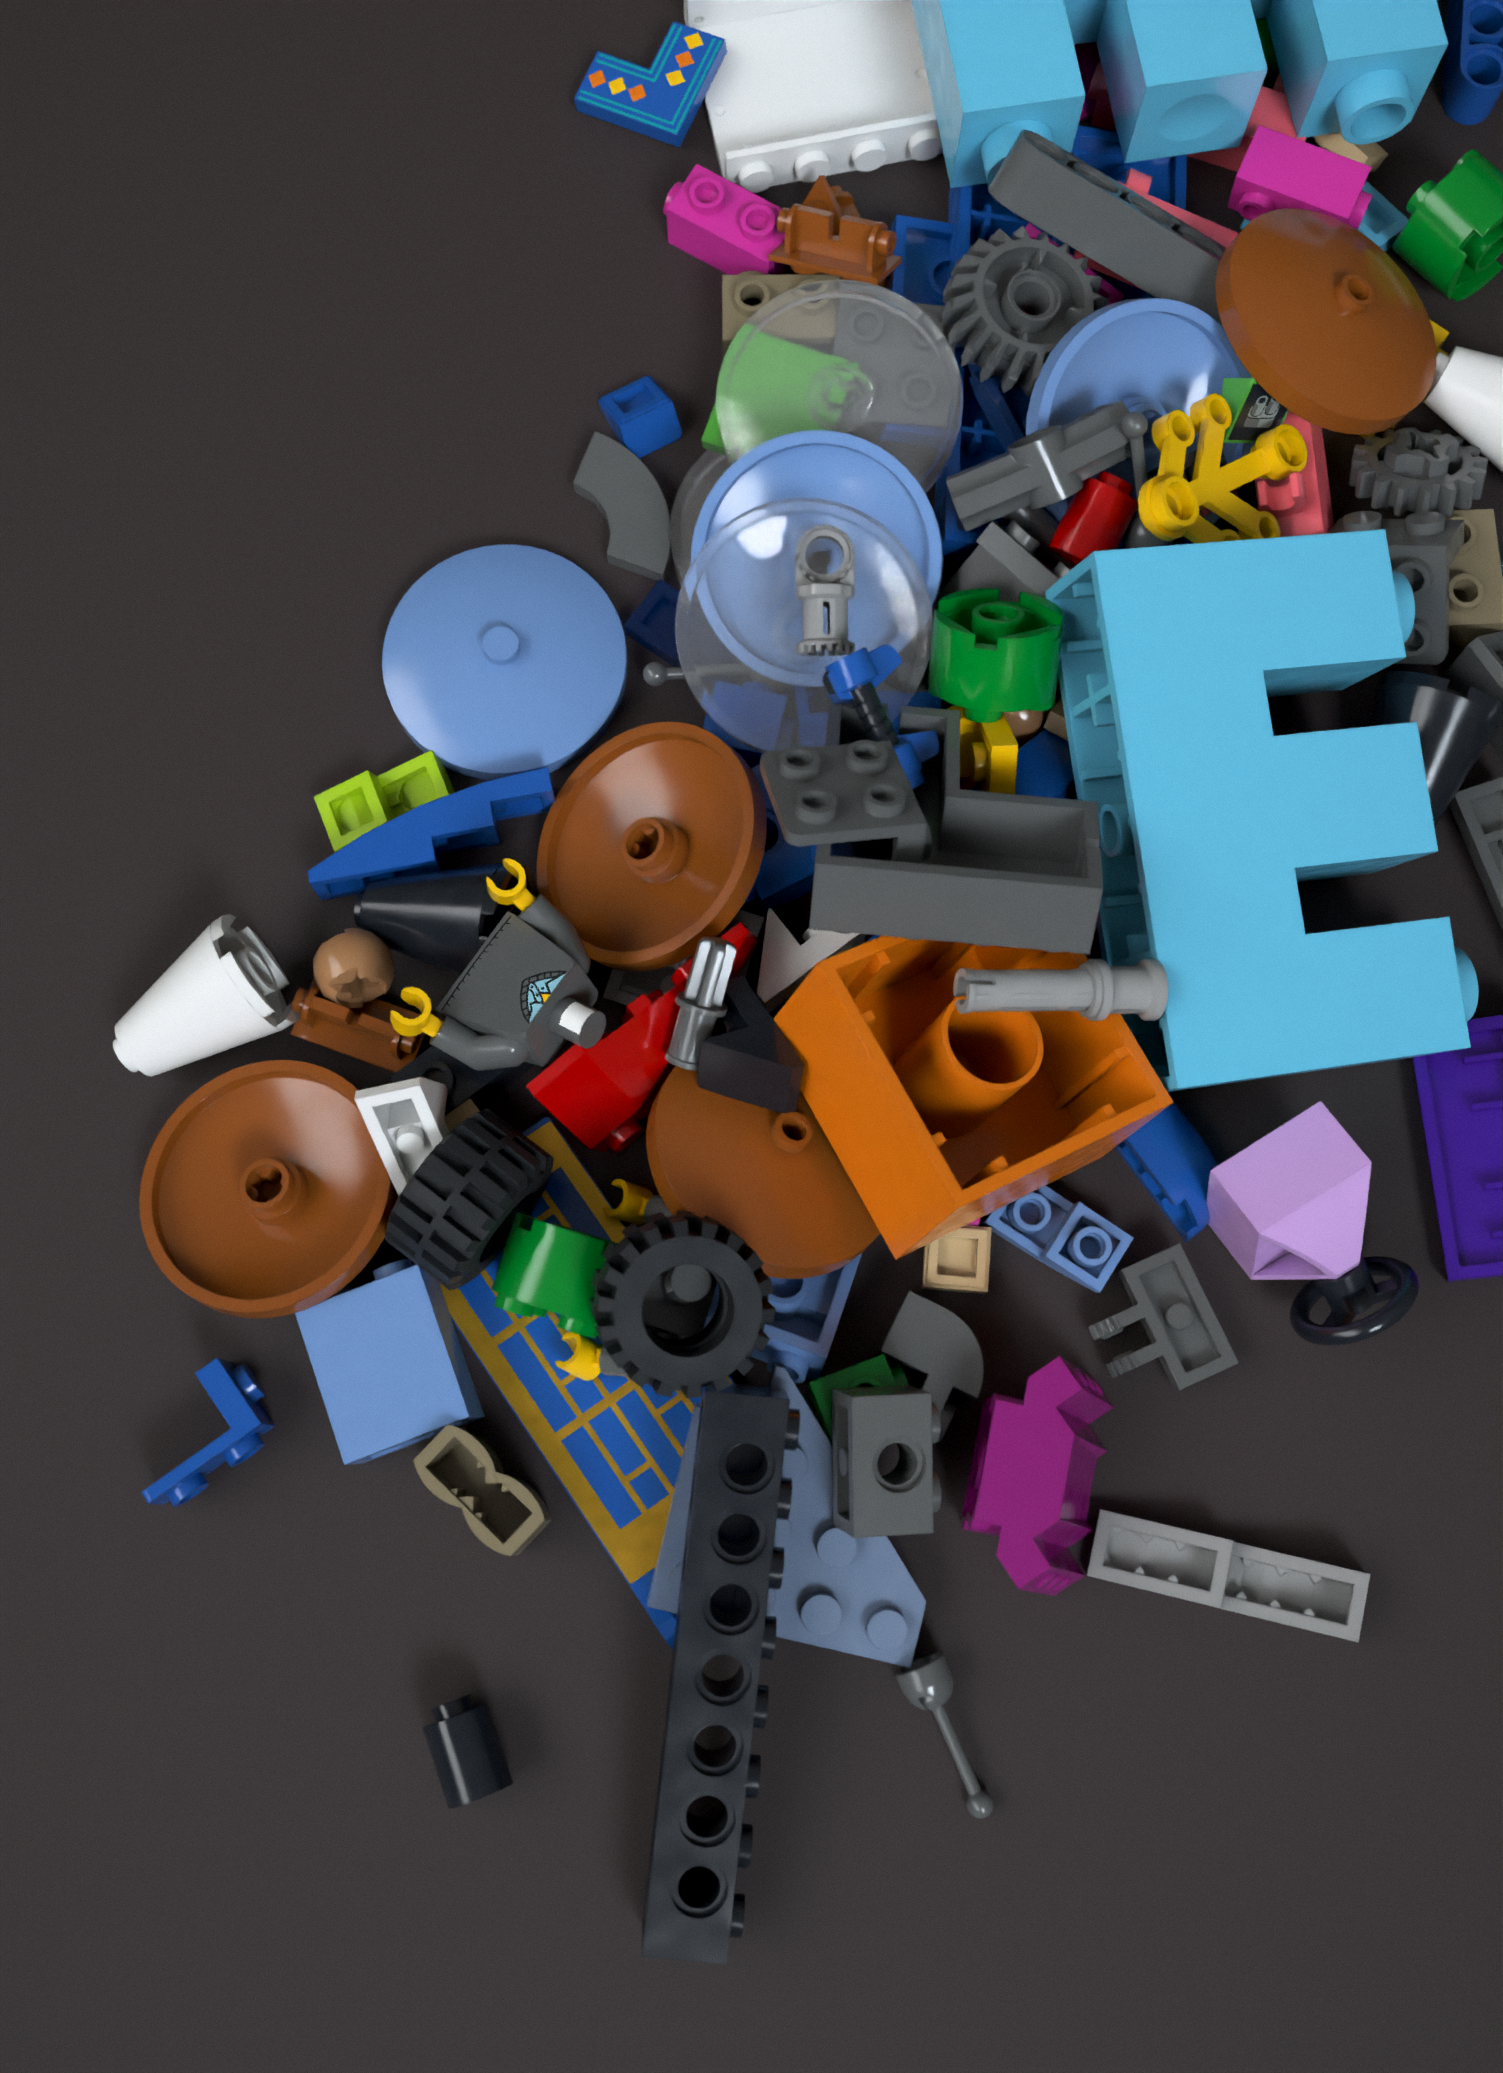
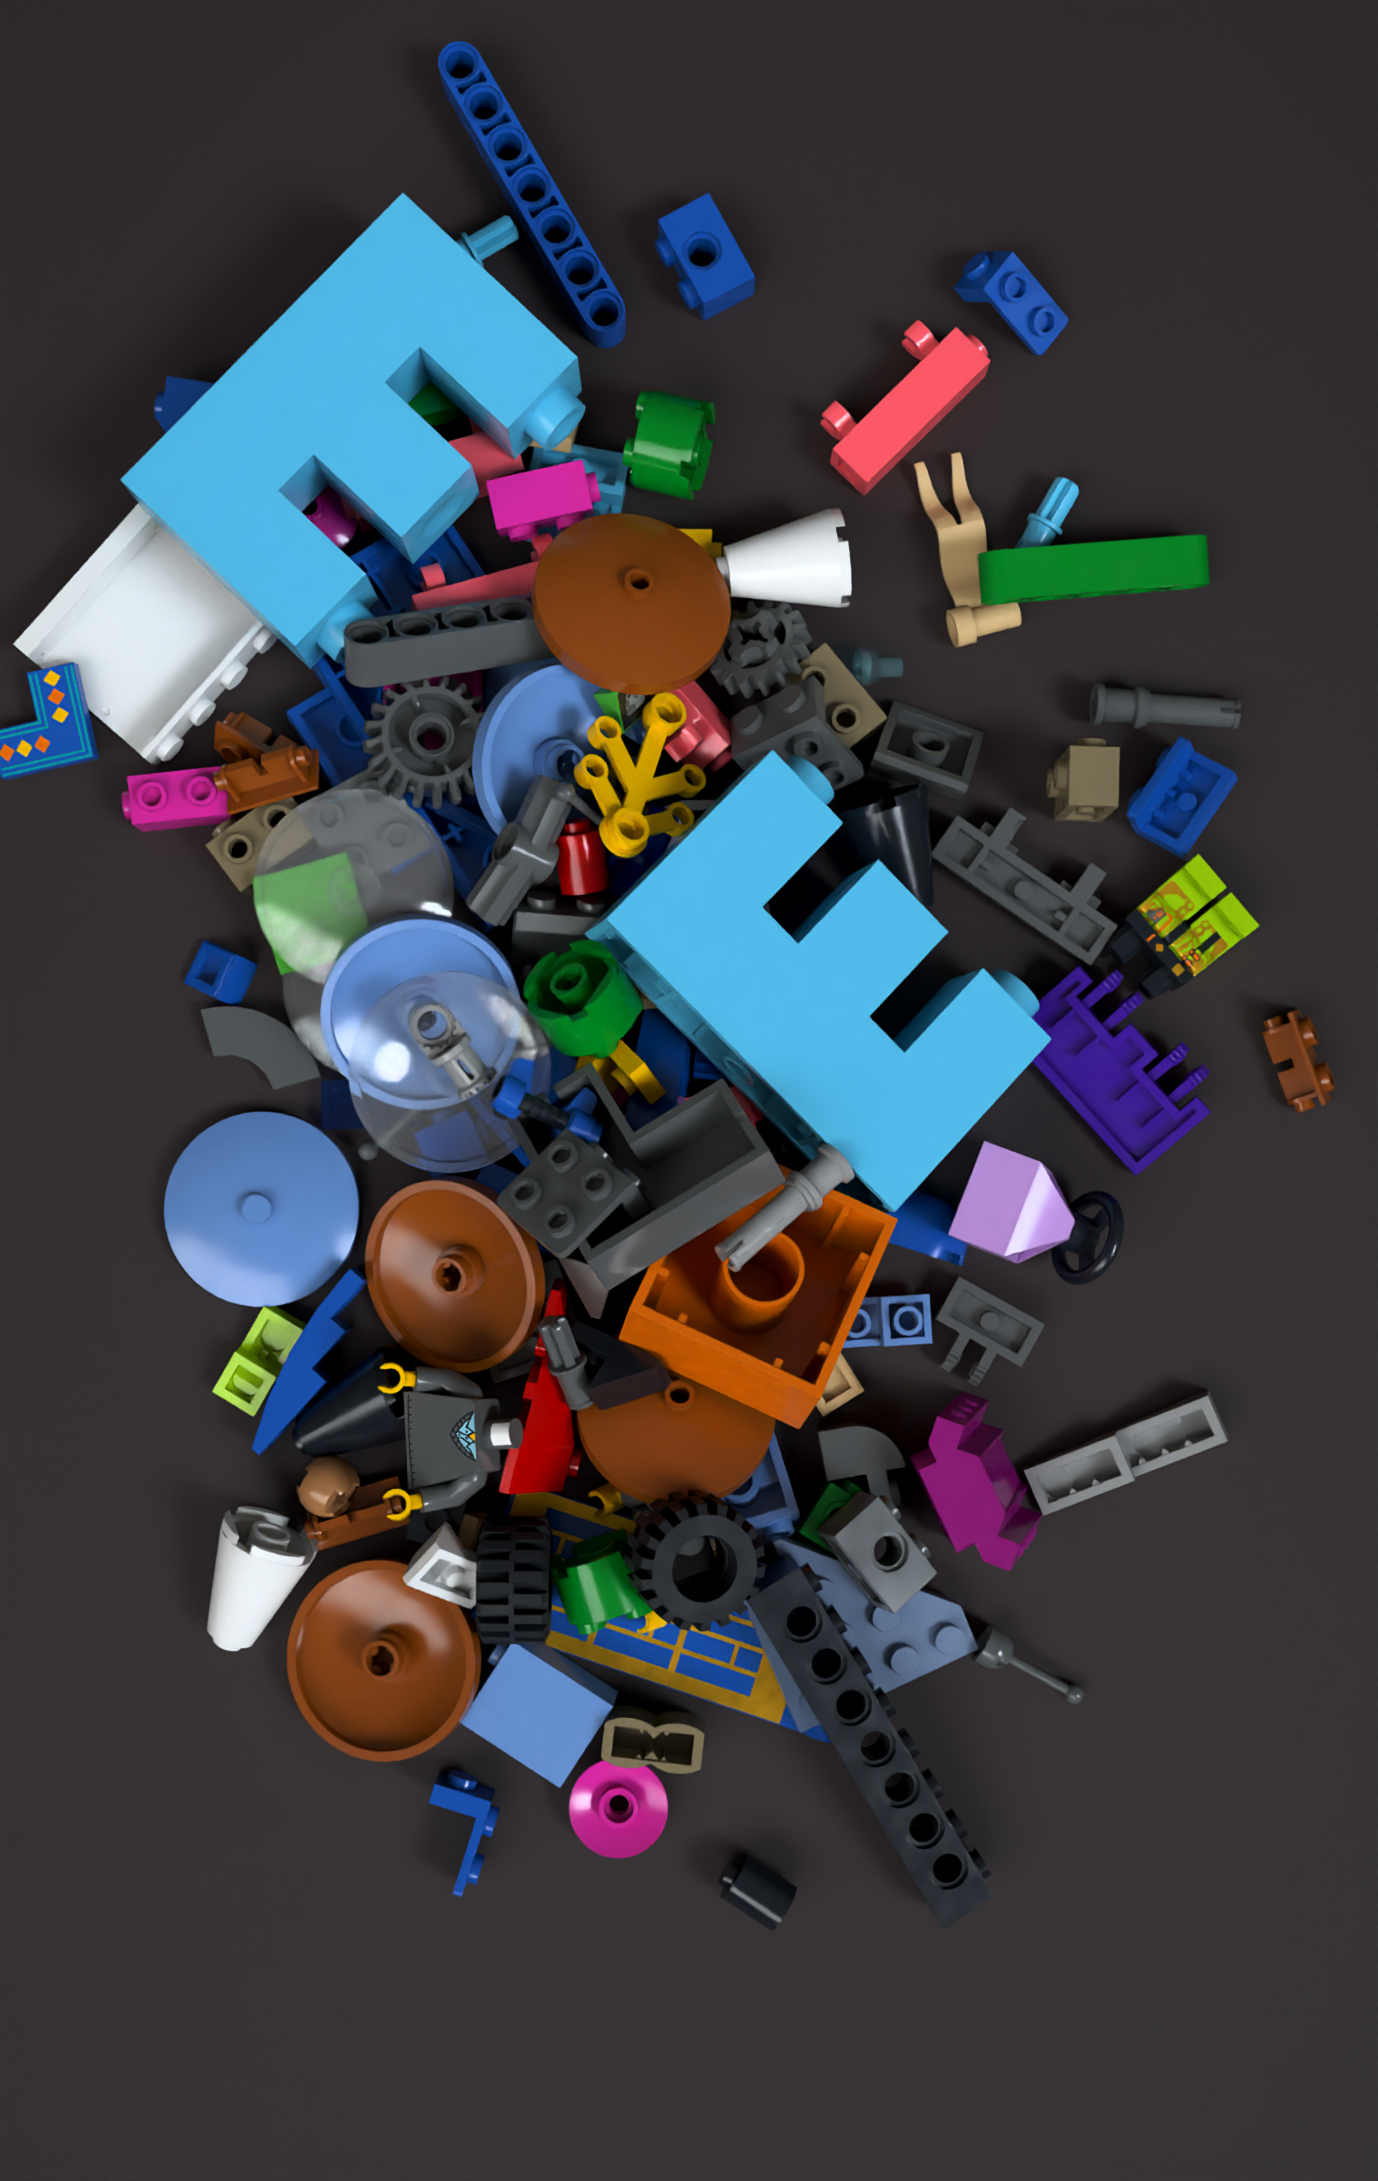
camera: 35 degrees left, 10 degrees up
(355, 1548) = (613, 1831): none -> dark pink dish

